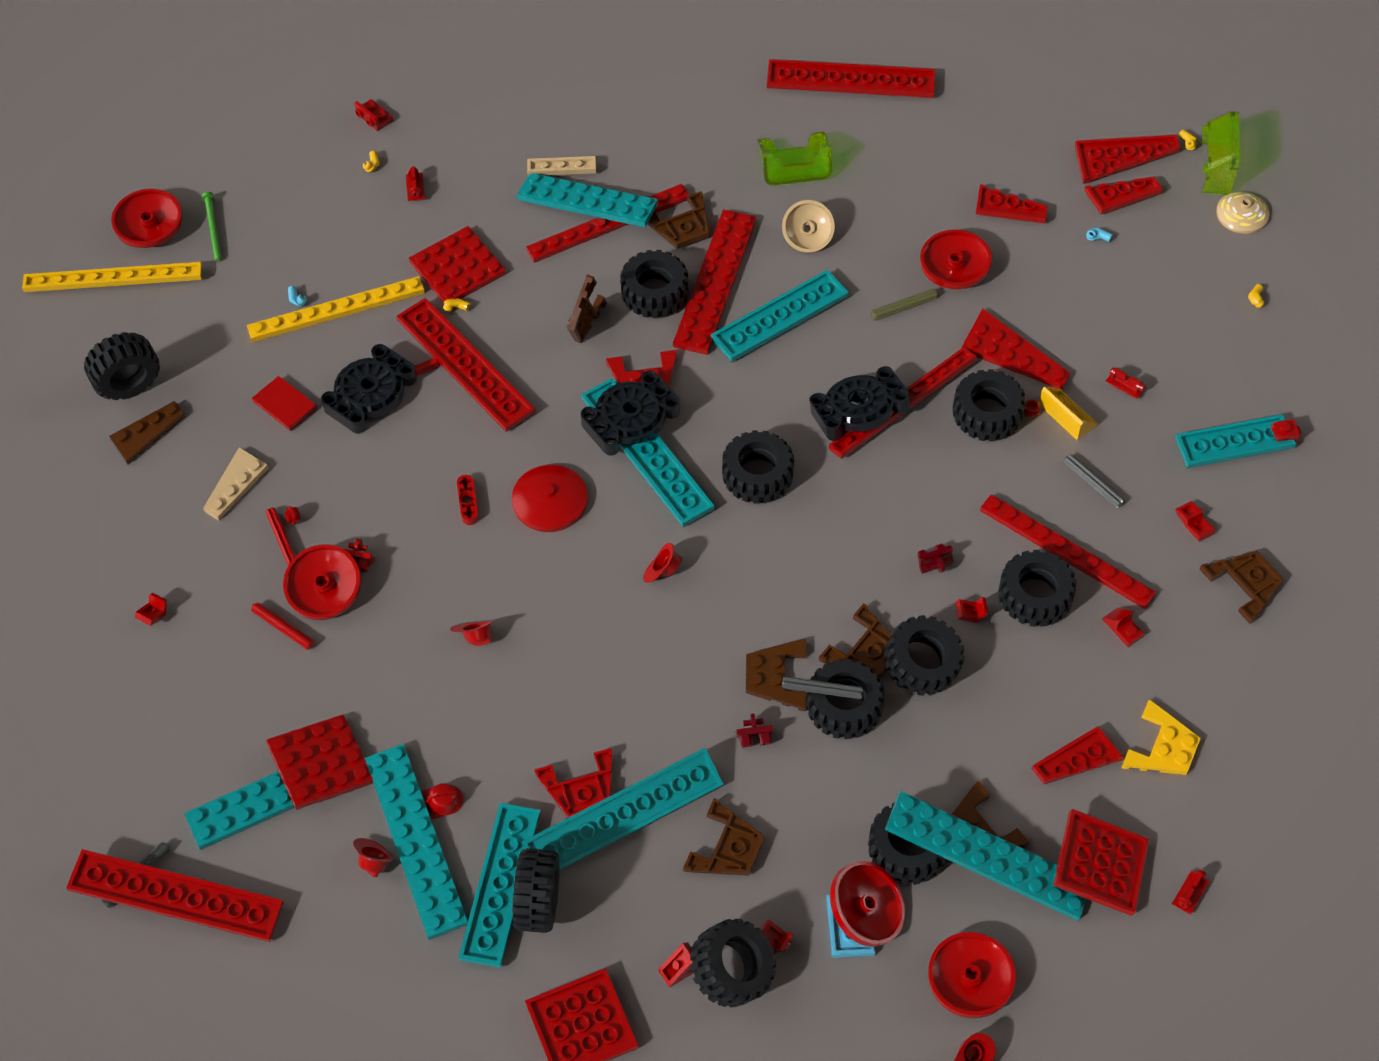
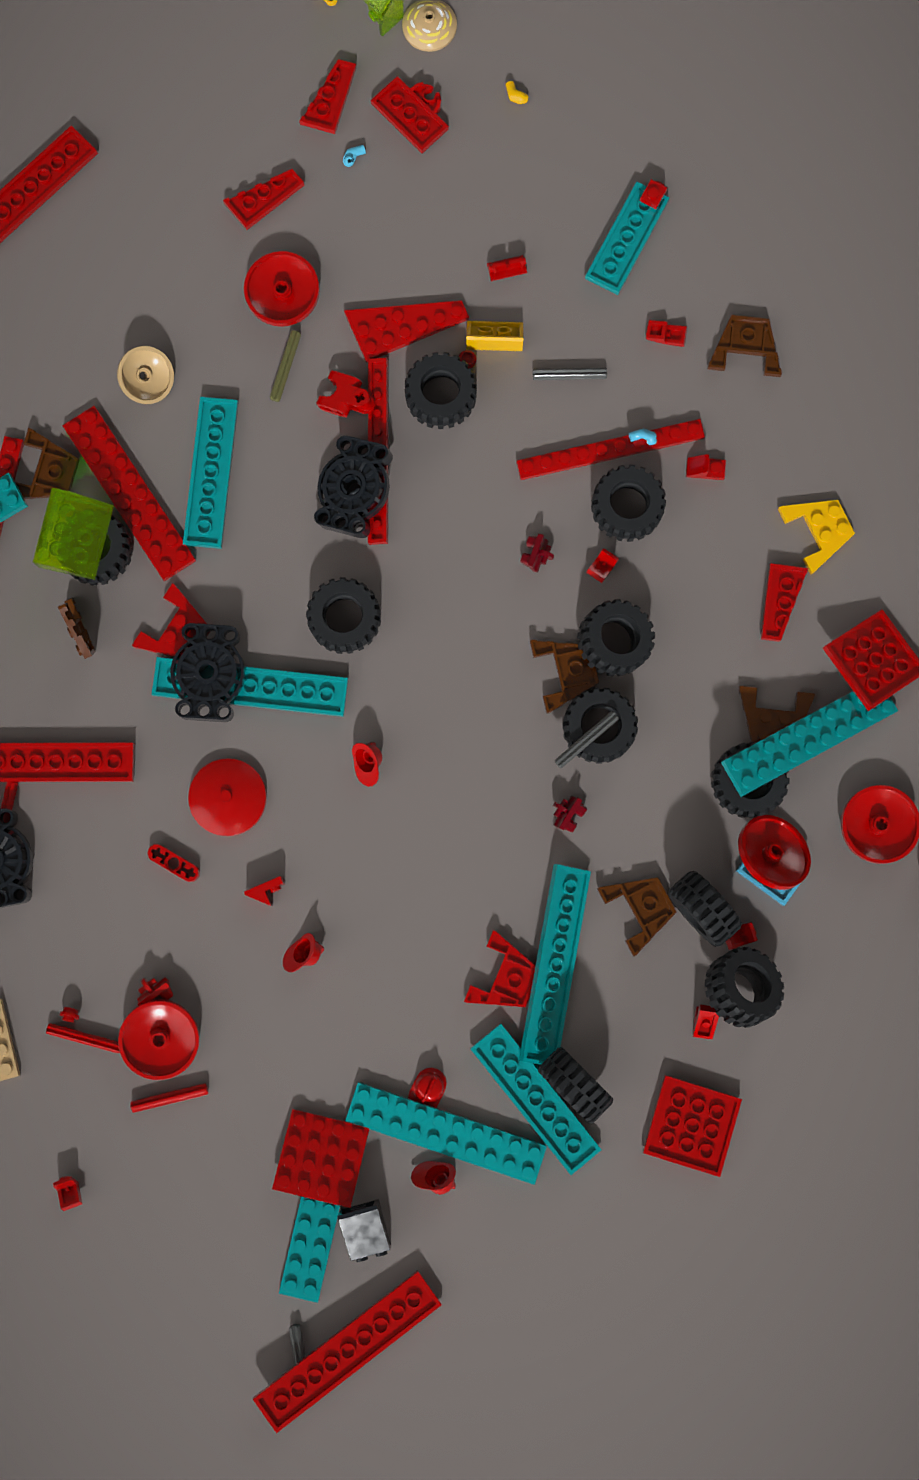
camera: 50 degrees left, 25 degrees up
(285, 833) = (364, 1230): none -> slope
(498, 568) = (260, 892): none -> red slope
(649, 256) = (72, 534): none -> clear neon green slope
(766, 671) = (523, 759): reddish brown wing -> none
(769, 878) = (704, 908): none -> black tyre
(798, 163) = (66, 323): clear neon green windscreen -> none
(921, 352) = (346, 397): none -> red piece
(1099, 557) = (645, 434): none -> medium azure arm
(1108, 156) = (287, 69): red wing -> none
(1169, 245) = (411, 112): none -> red plate

